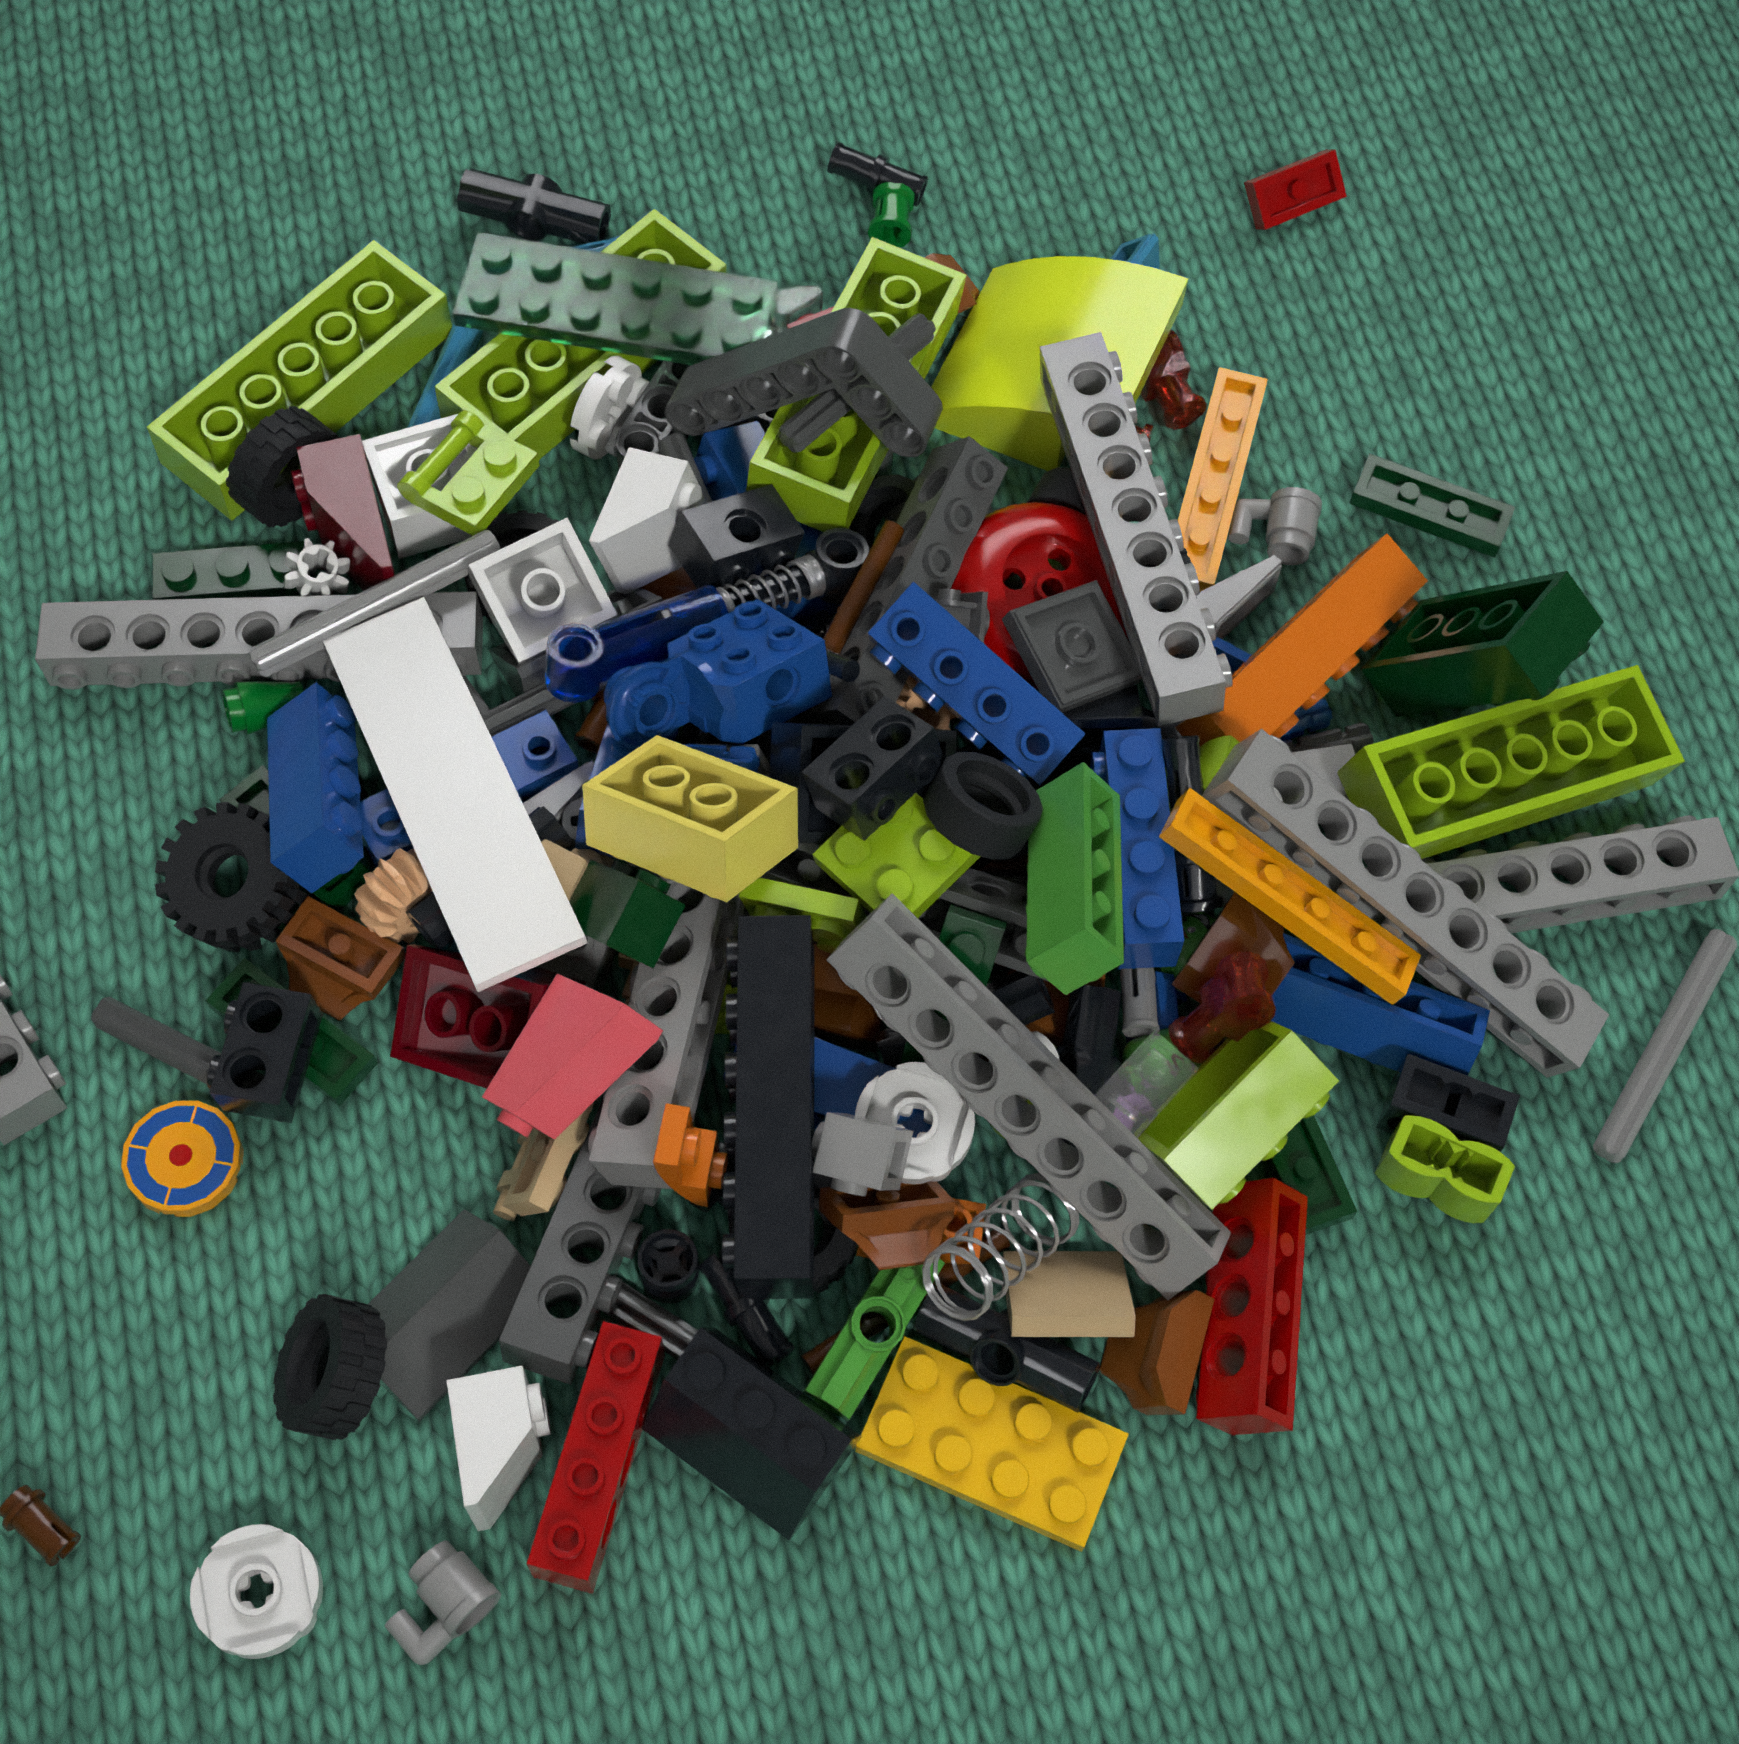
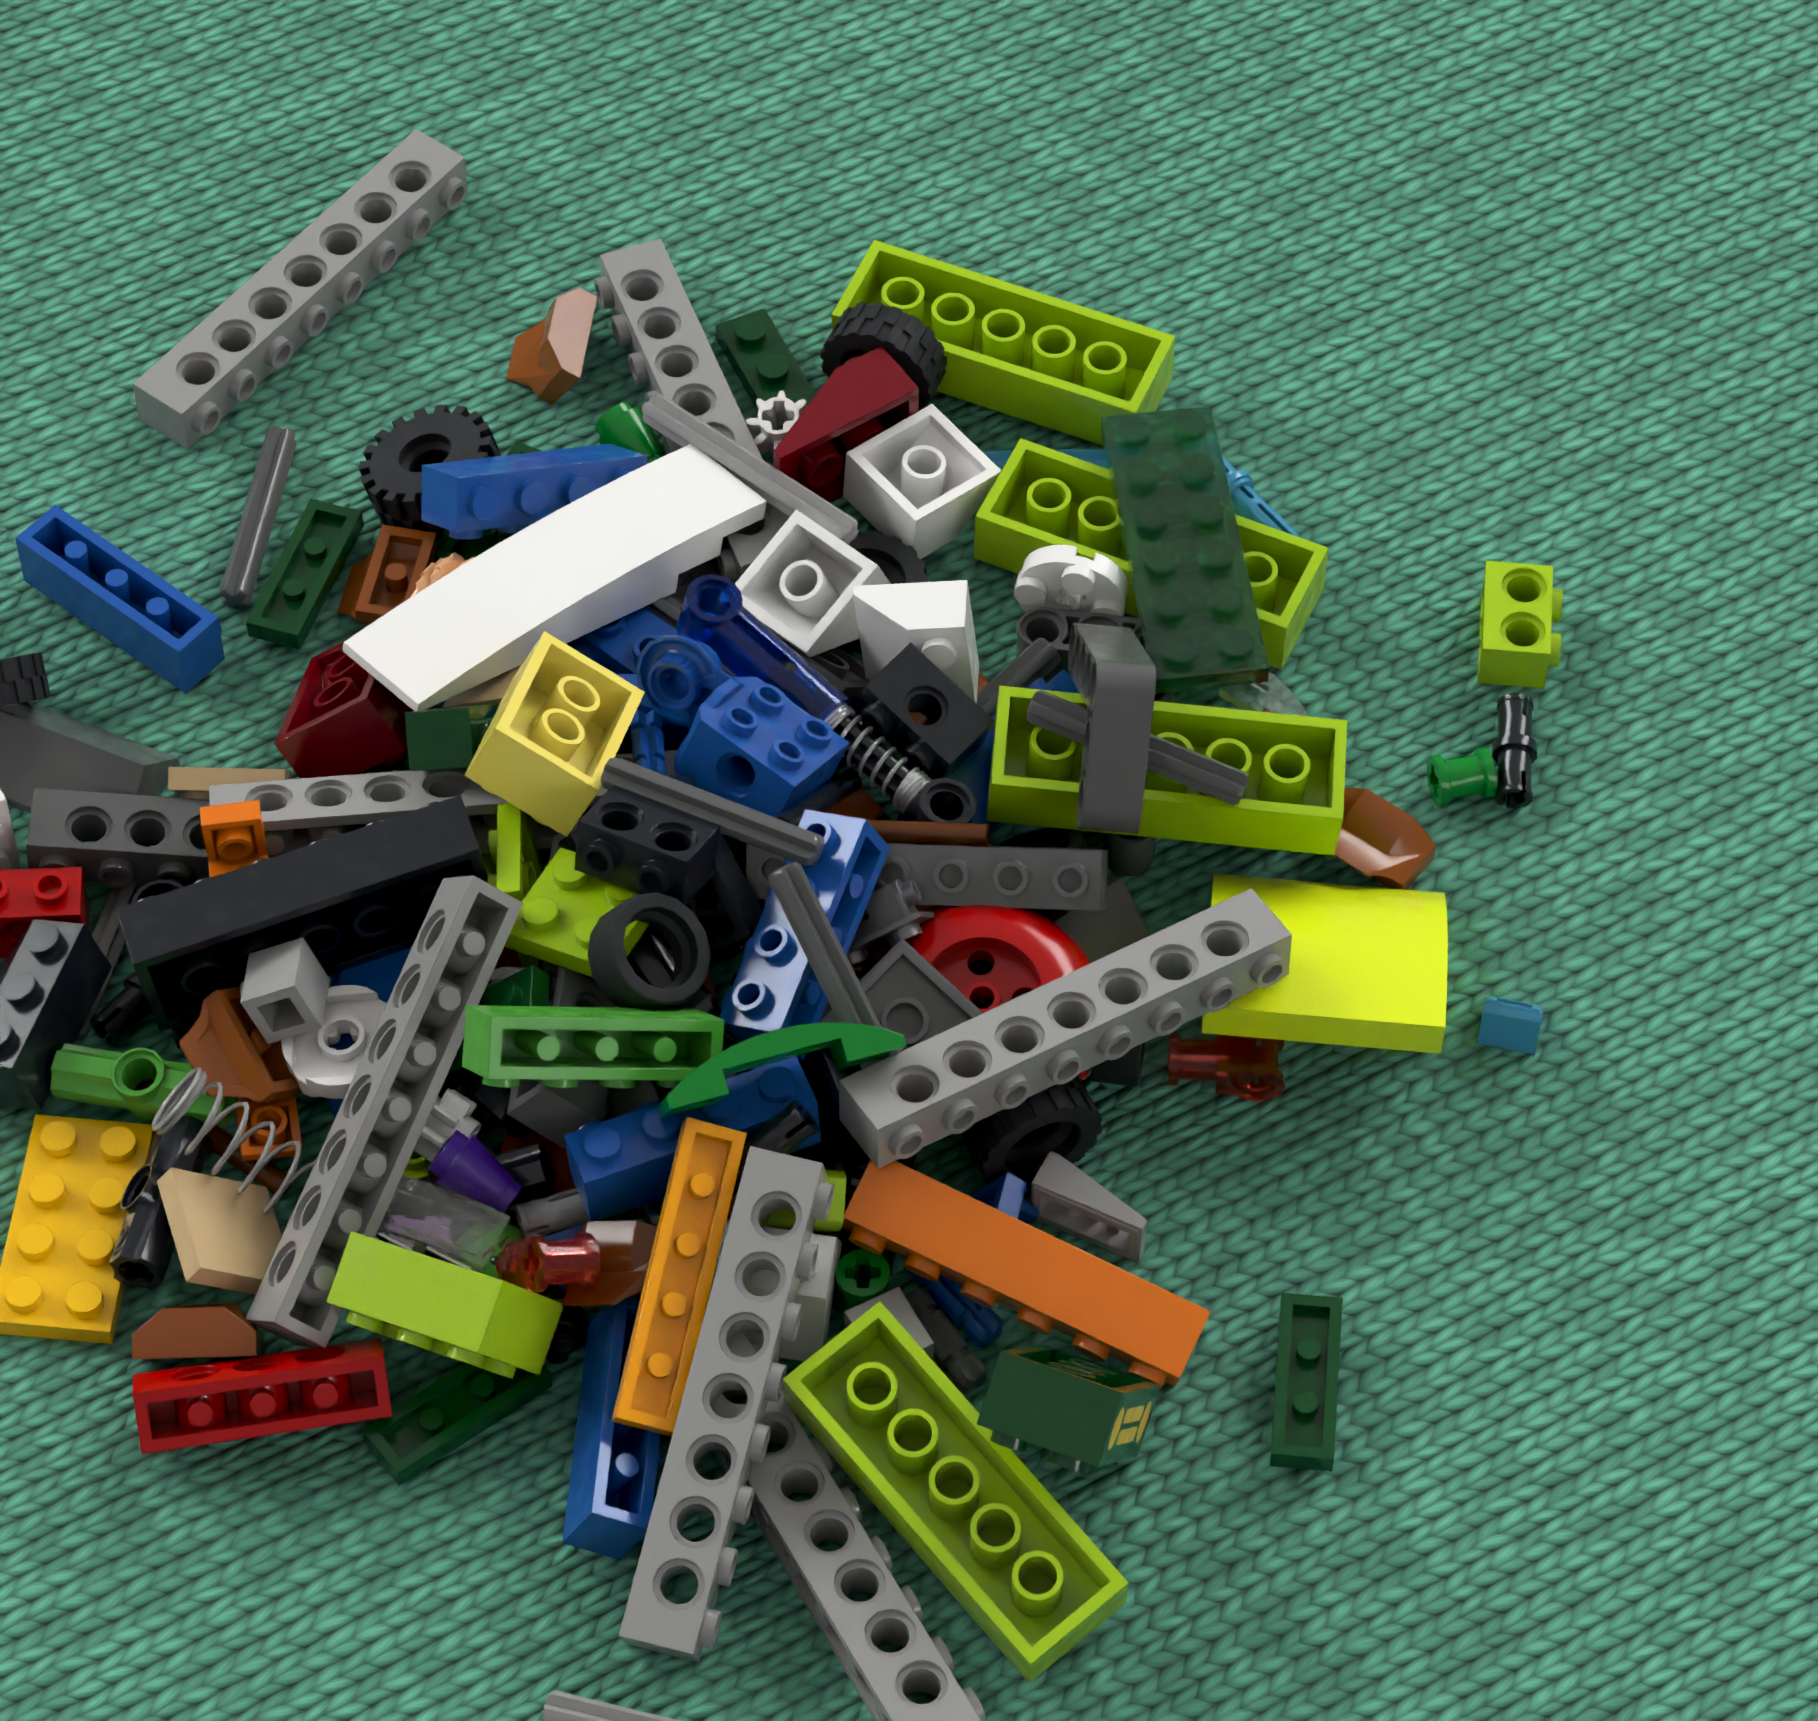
camera: 75 degrees right, 10 degrees down
(115, 738) = (553, 351): none -> dark orange slope
(182, 1158) = (166, 535): tile -> none
(258, 1209) = (120, 598): none -> blue brick
(280, 1053) = (263, 548): black brick -> none
(481, 484) = (920, 506): lime plate -> none
(533, 207) = (1315, 467): black piece -> none
(567, 1057) = (307, 739): coral slope -> none
(756, 129) = (1517, 624): none -> lime brick
(878, 681) = (733, 818): none -> dark grey axle
(1048, 665) = (822, 947): none -> dark grey axle
(1104, 1046) = (473, 1172): none -> dark purple cone
(1141, 796) = (848, 1042): none -> green slope
(1170, 386) = (1361, 1080): clear red connector -> none
(1219, 469) = (1248, 1161): light orange plate -> none
(1291, 522) = (1212, 1244): light grey piece -> none
(1295, 189) = (1695, 1149): red plate -> none
(1452, 1099) = (529, 1526): black brick -> none
(1456, 1175) = (462, 1534): lime brick -> none

